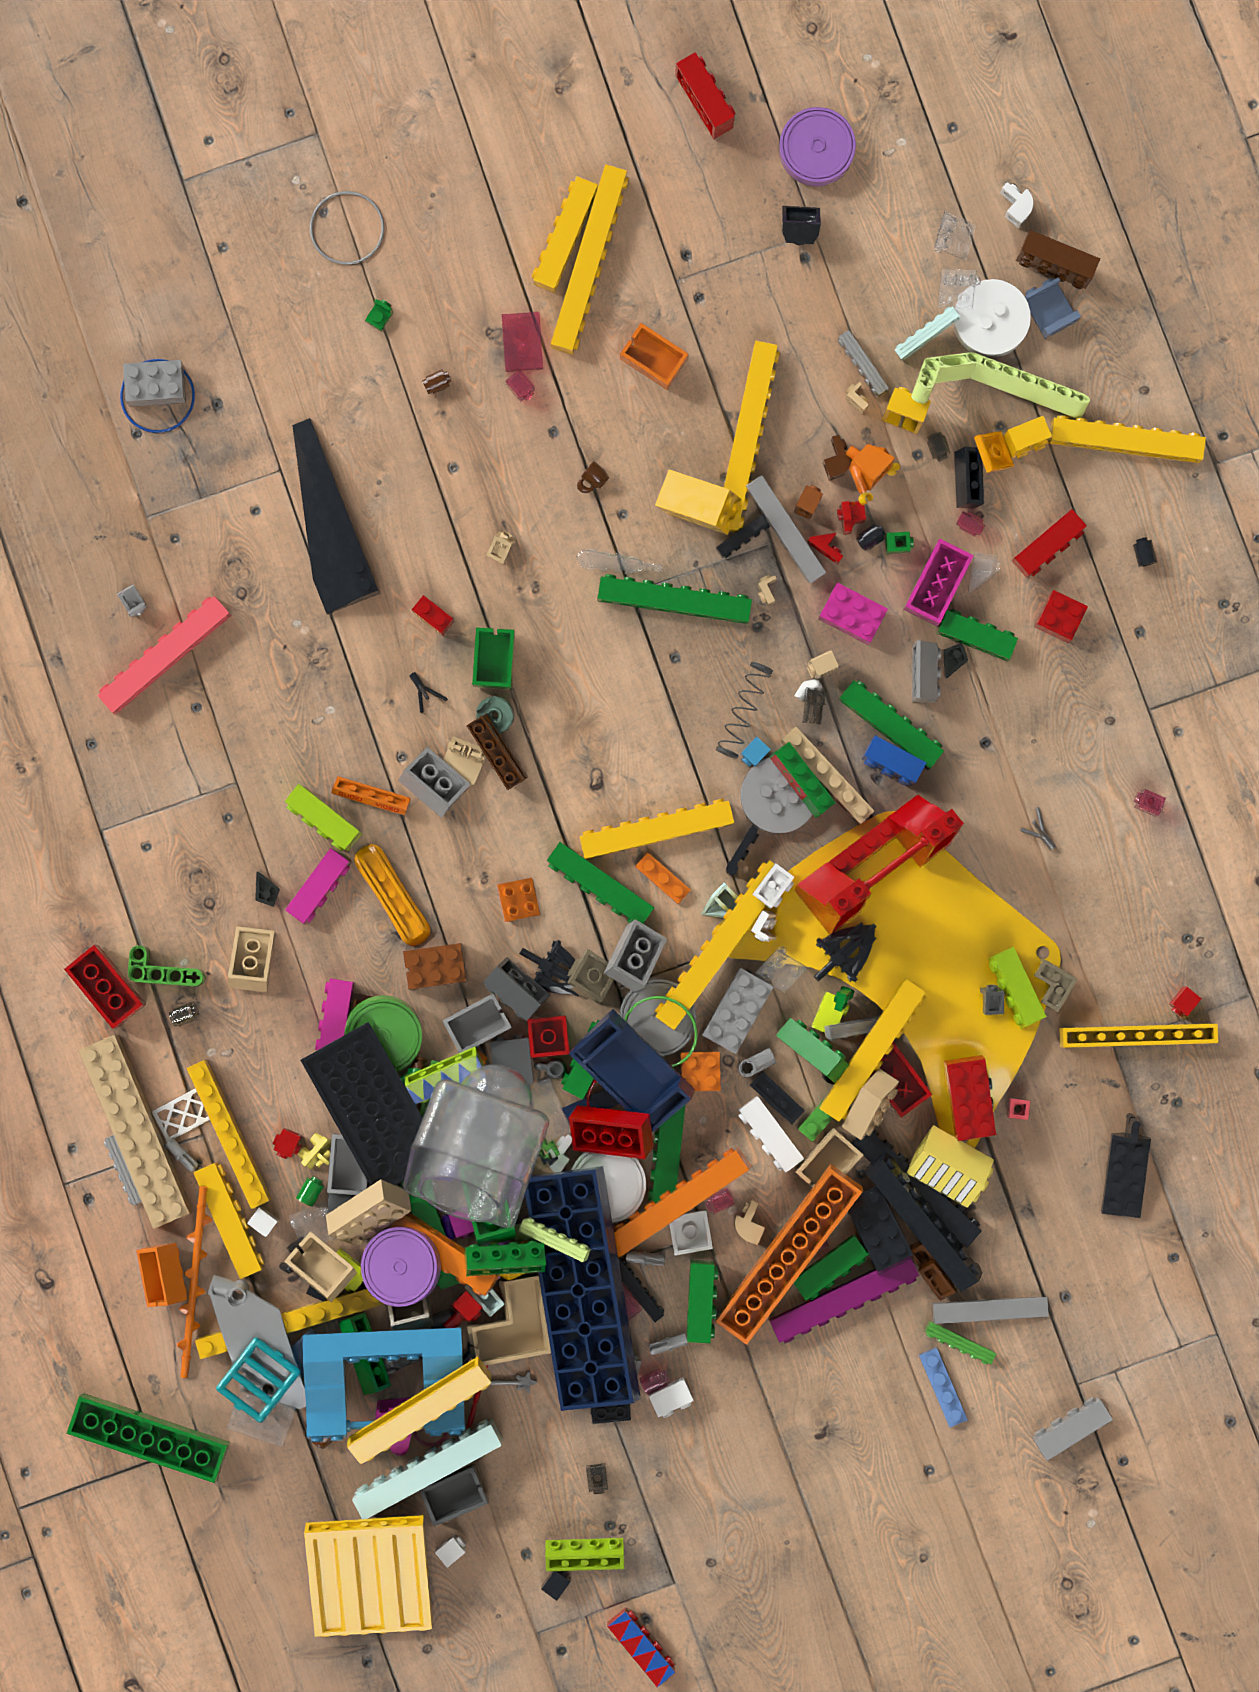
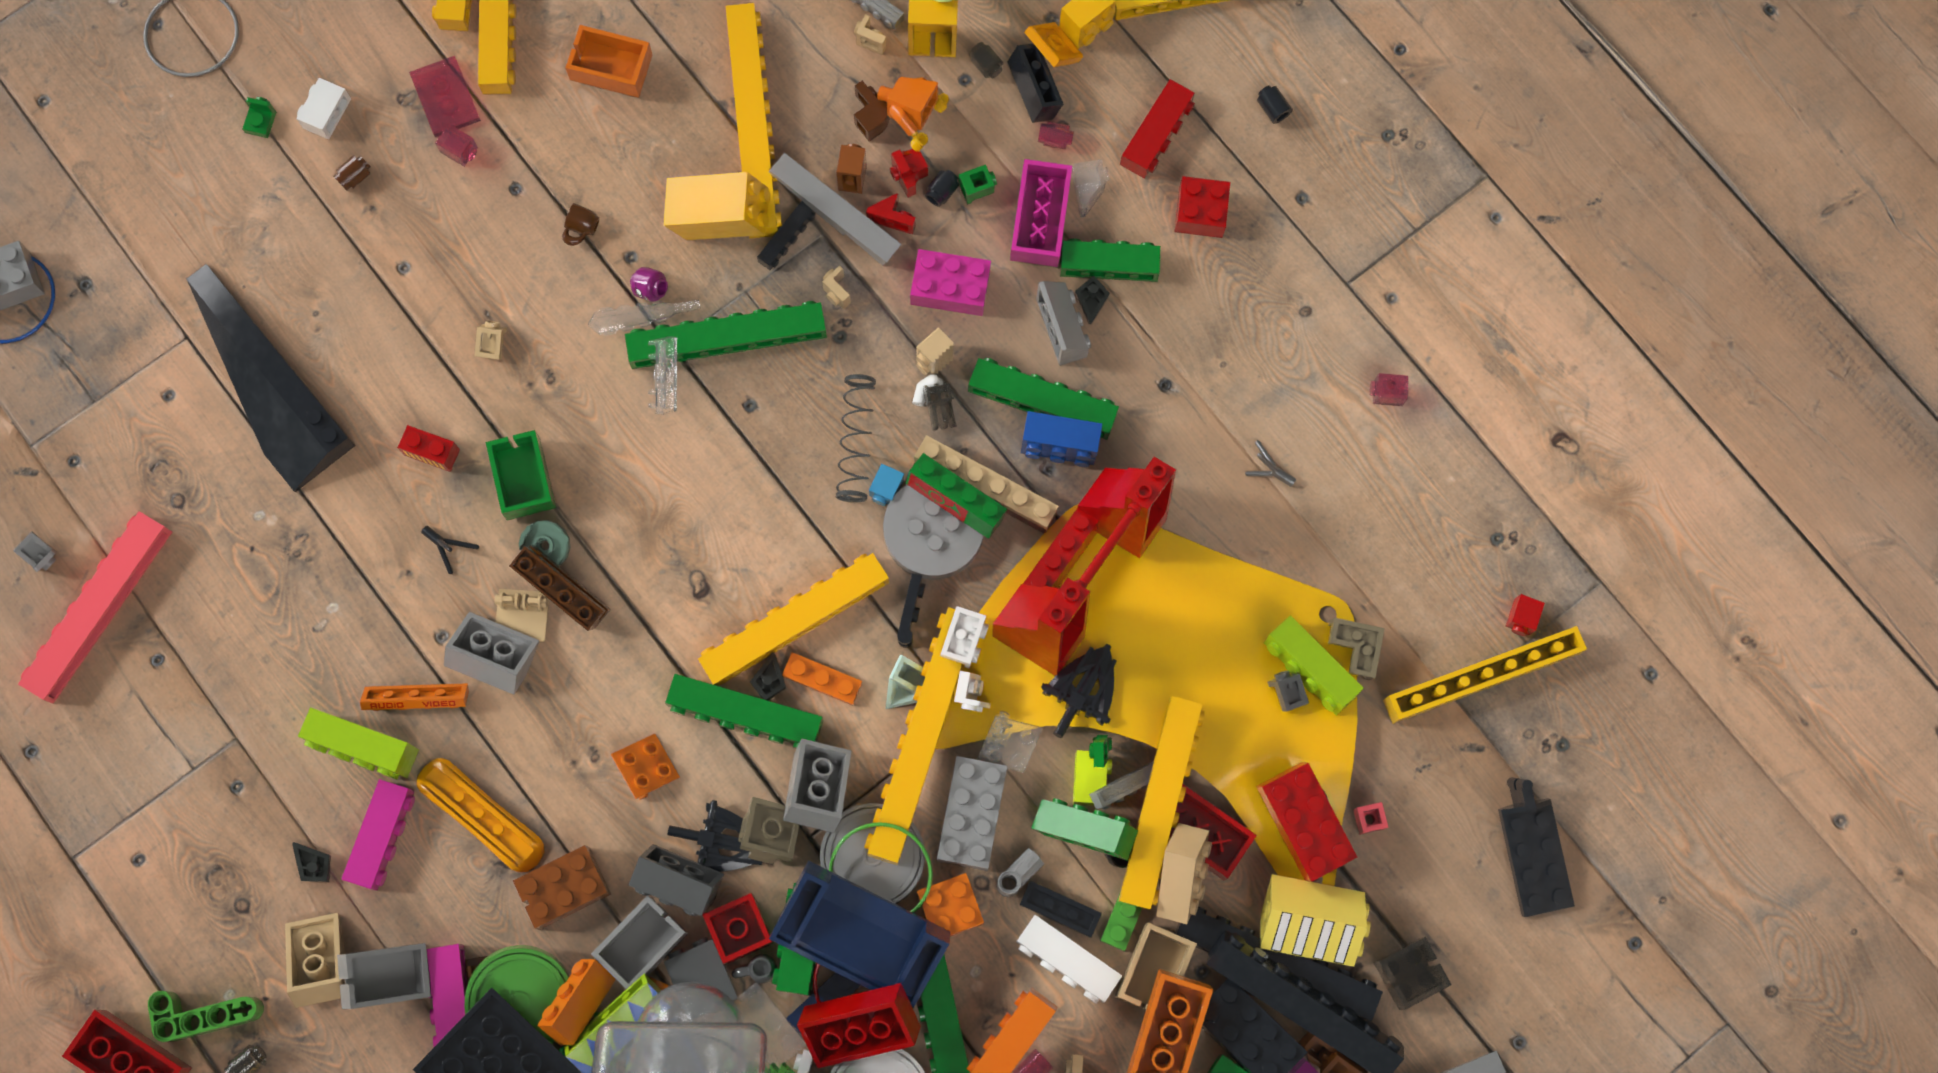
camera: 20 degrees left, 10 degrees down
(296, 987) = (384, 976): none -> light grey piece
(422, 1050) = (576, 1001): none -> orange brick
(429, 323) = (323, 108): none -> white brick
(620, 617) = (664, 375): none -> clear plate
(625, 866) = (769, 679): none -> pearl dark grey piece
(629, 542) = (649, 284): none -> magenta head
(1007, 1226) = (1411, 975): none -> clear smoke piece

